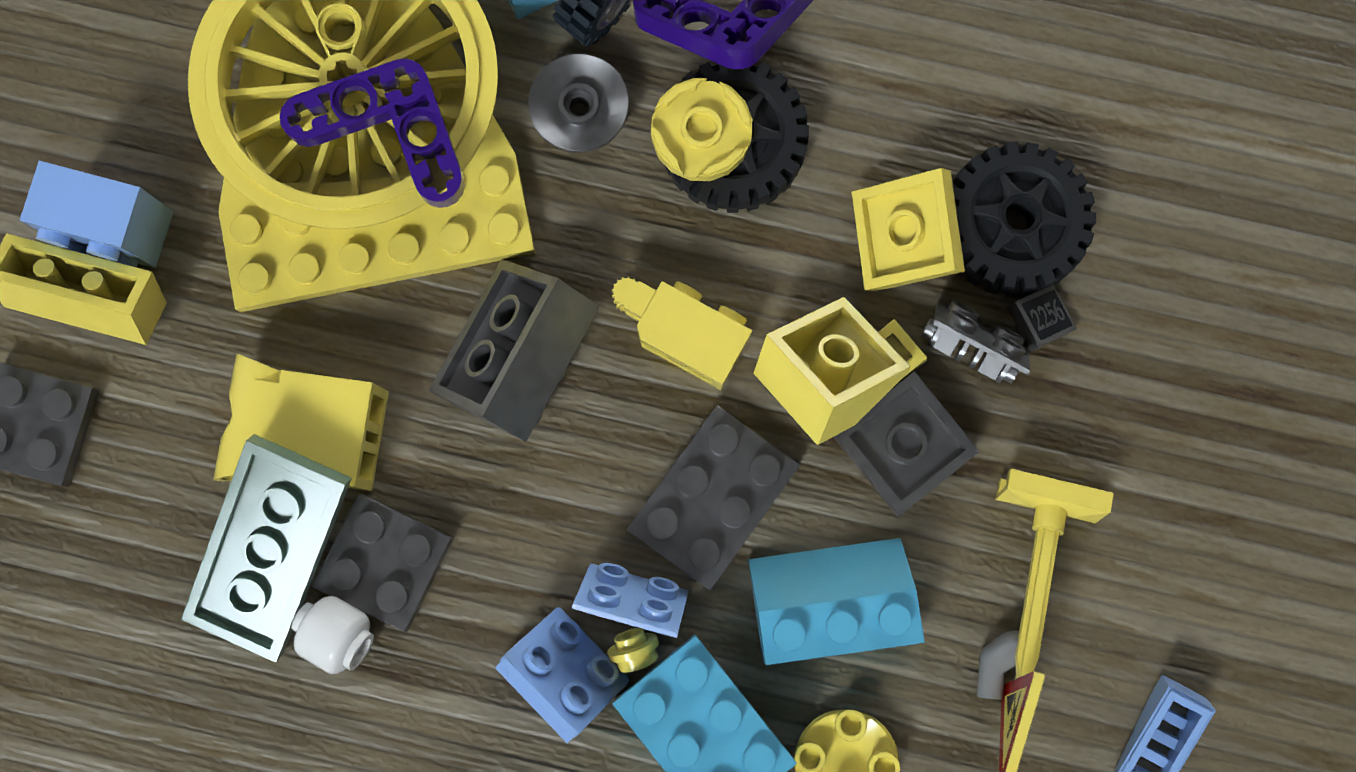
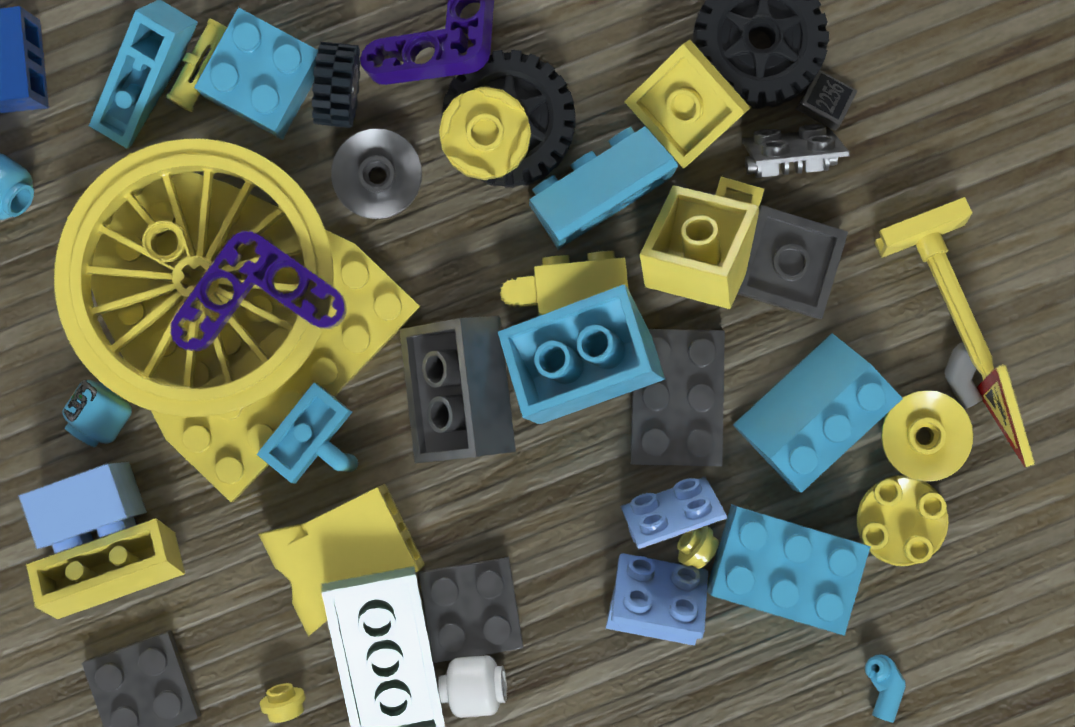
camera: 40 degrees left, 5 degrees up
(148, 526) = (283, 702): none -> light yellow plate
(170, 145) = (95, 413): none -> medium azure head
(344, 293) = (308, 434): none -> medium azure plate
(646, 392) = (580, 355): none -> medium azure slope
(777, 252) = (601, 185): none -> medium azure slope
(951, 700) = (949, 440): none -> light yellow dish

